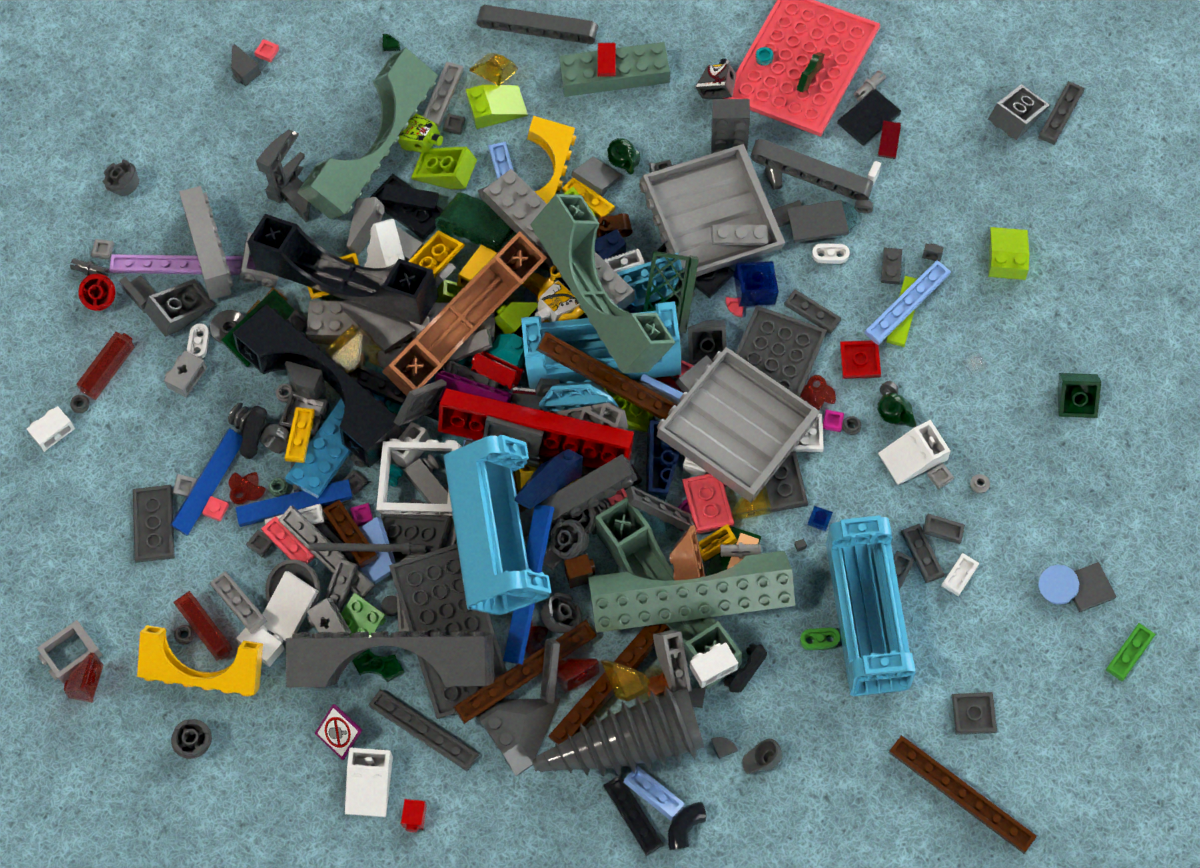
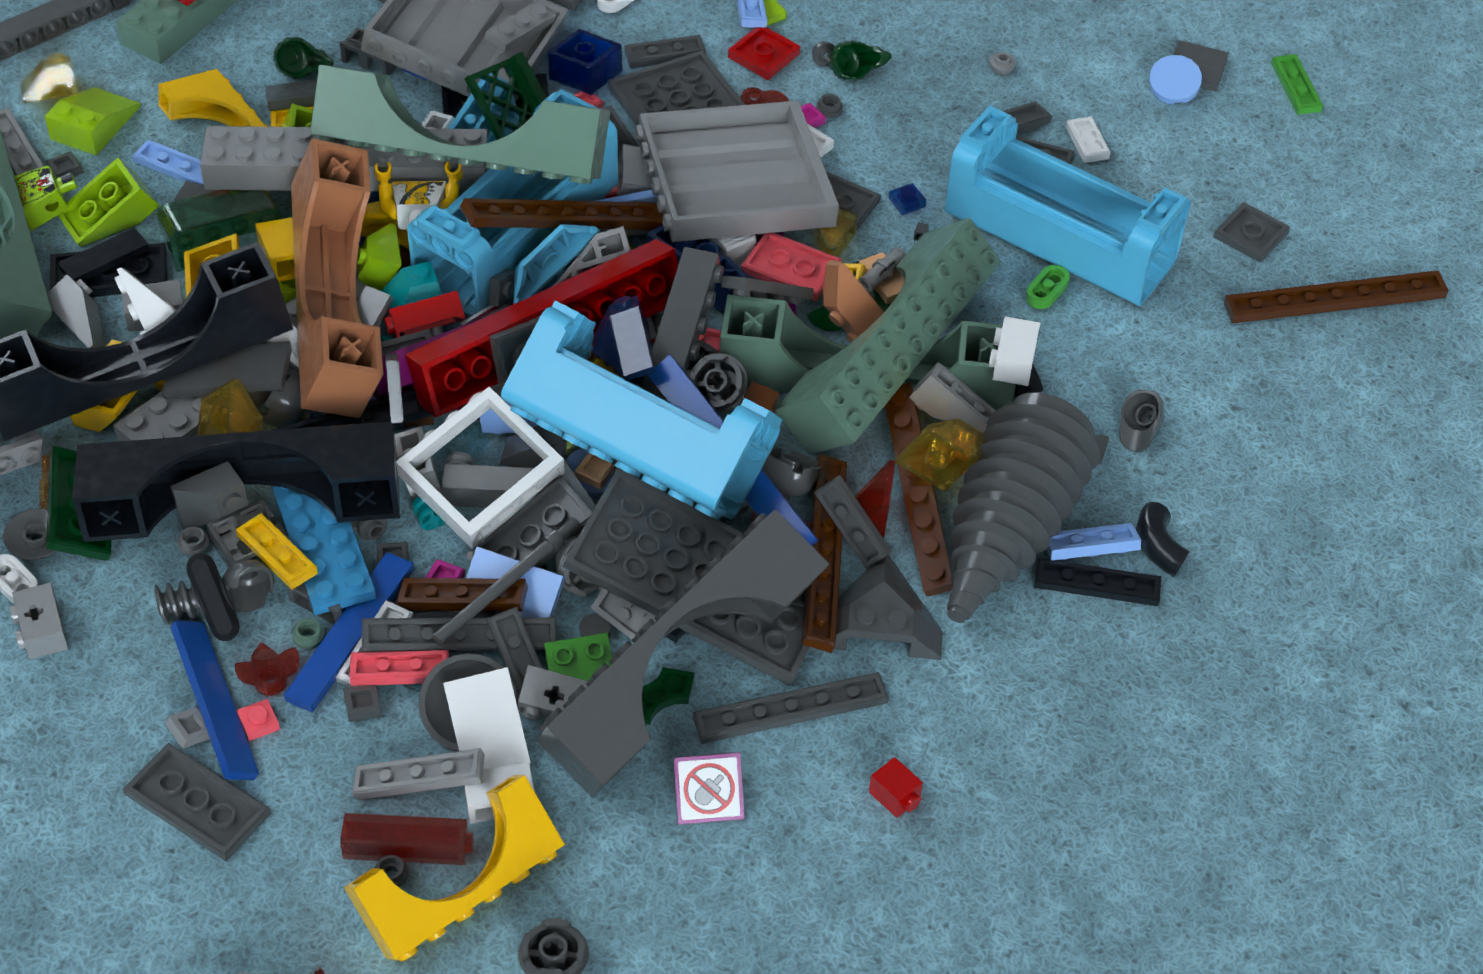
camera: 55 degrees left, 15 degrees down
(368, 782) = (806, 802): white slope -> none
(915, 452) = (918, 78): white slope -> none
(940, 476) = (961, 84): light grey tile -> none

